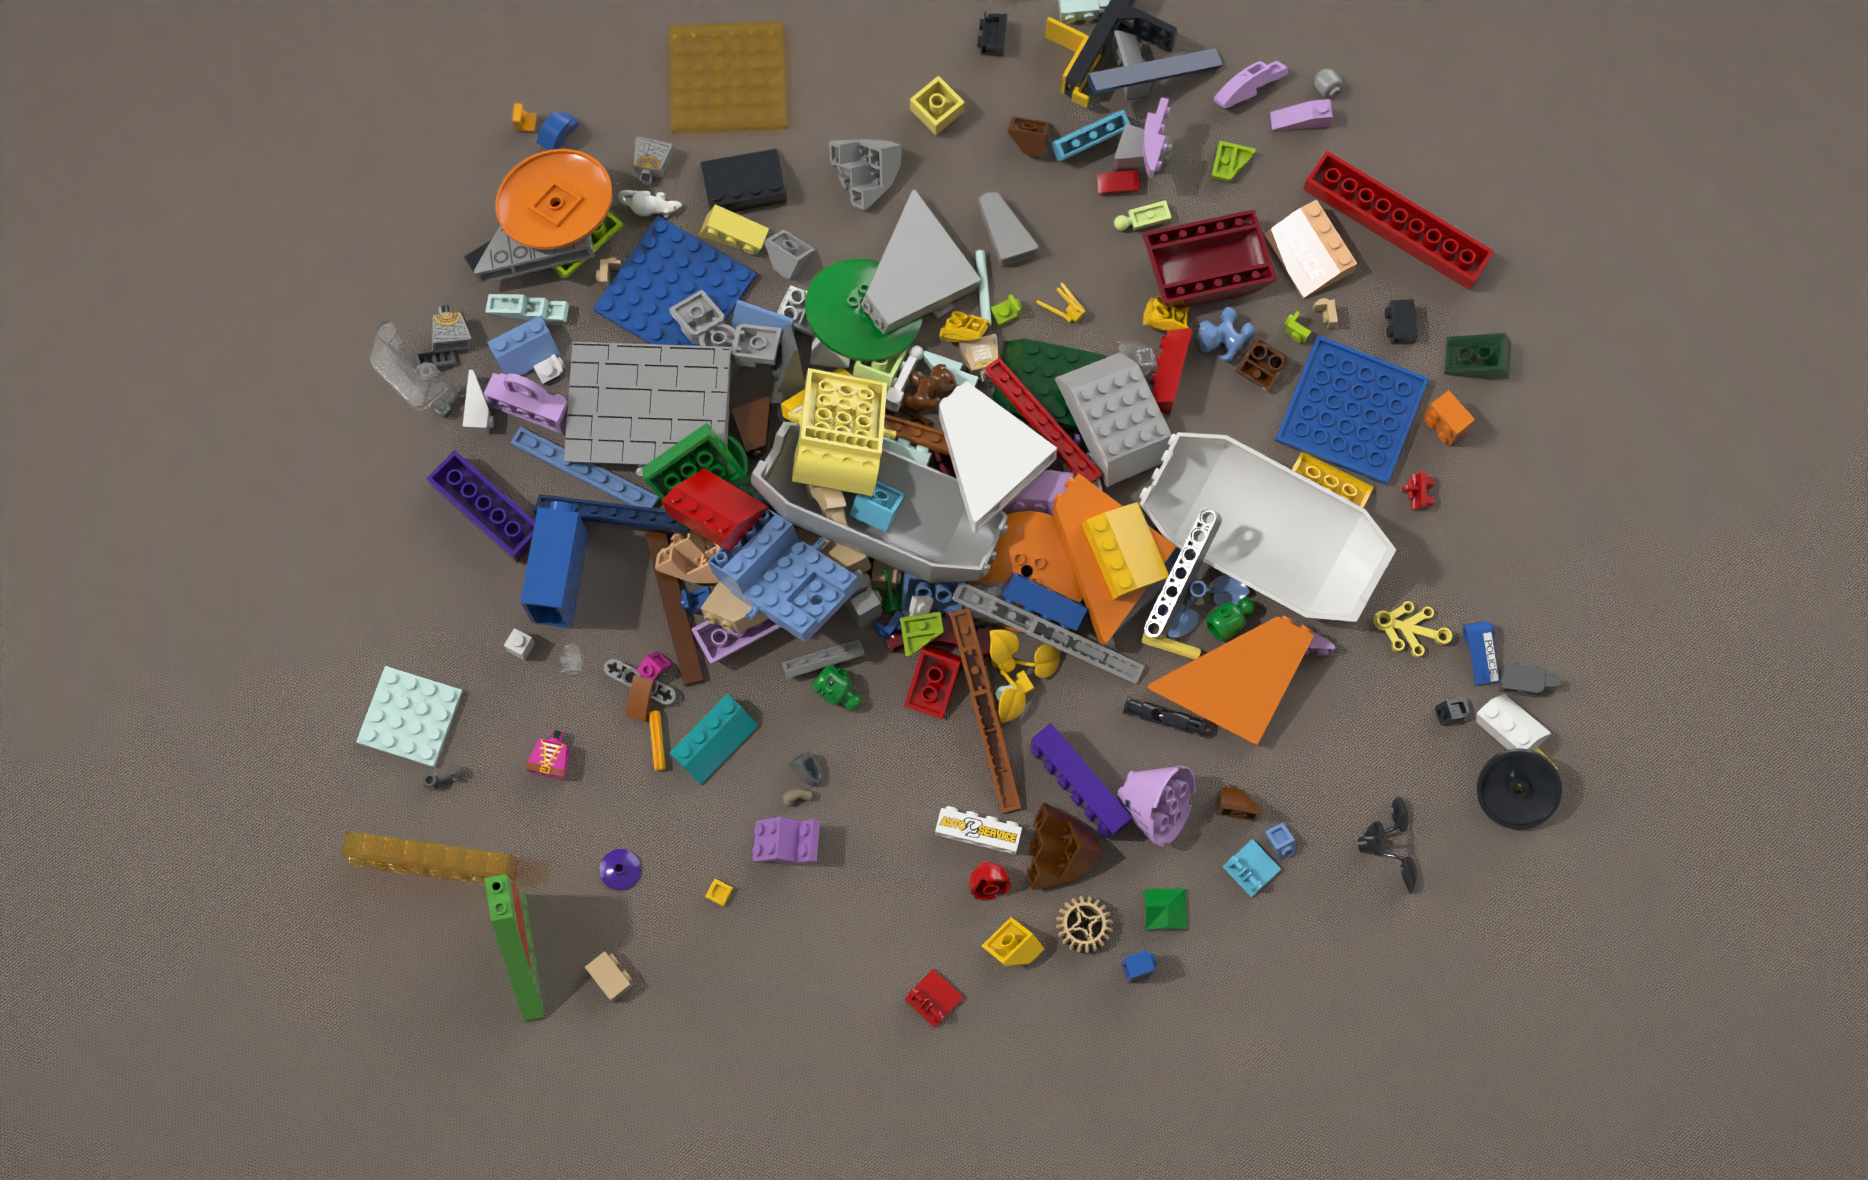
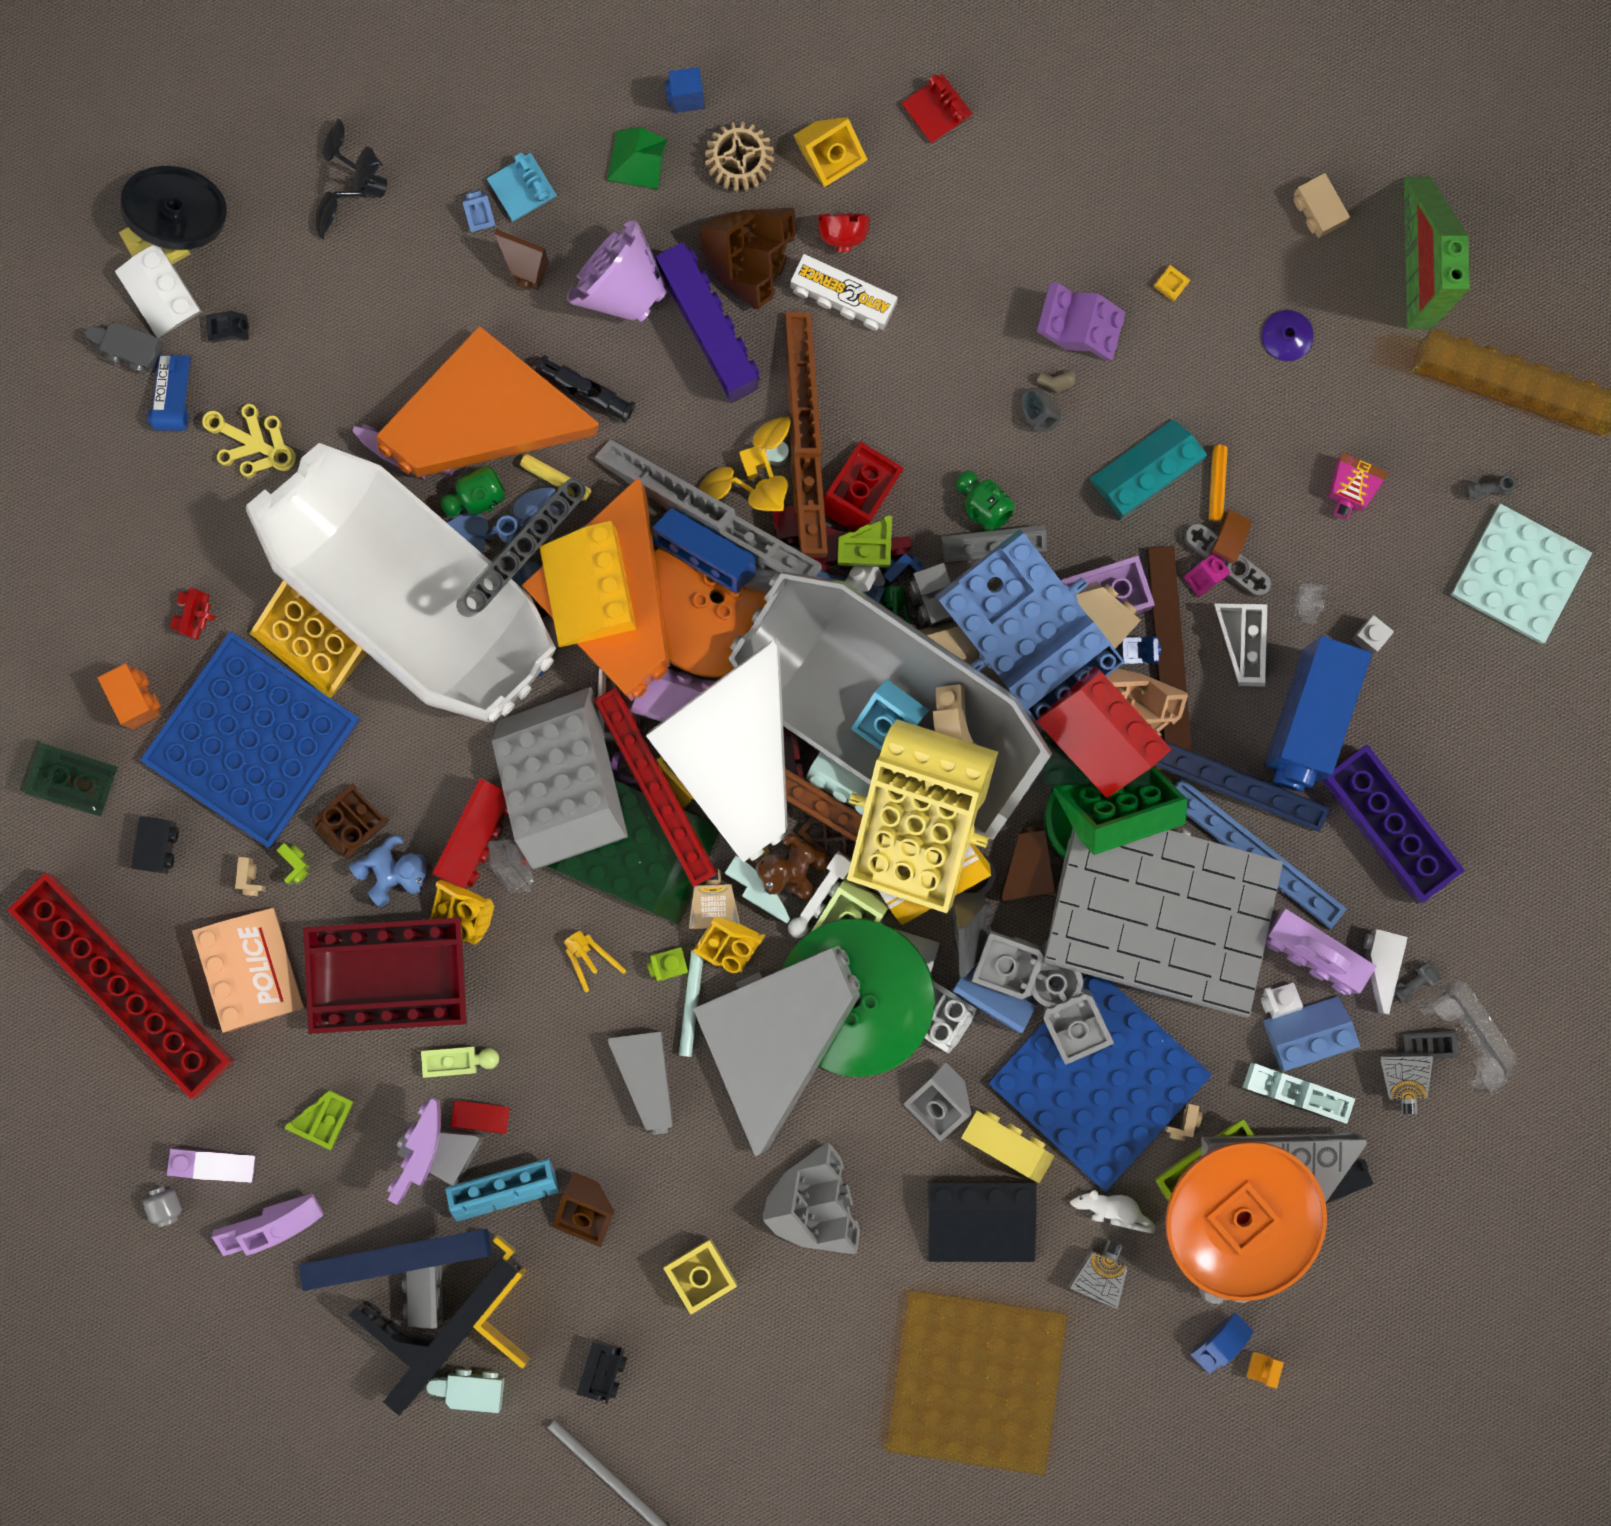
camera: 170 degrees left, 10 degrees up
(617, 623) = (1245, 637): none -> white wedge

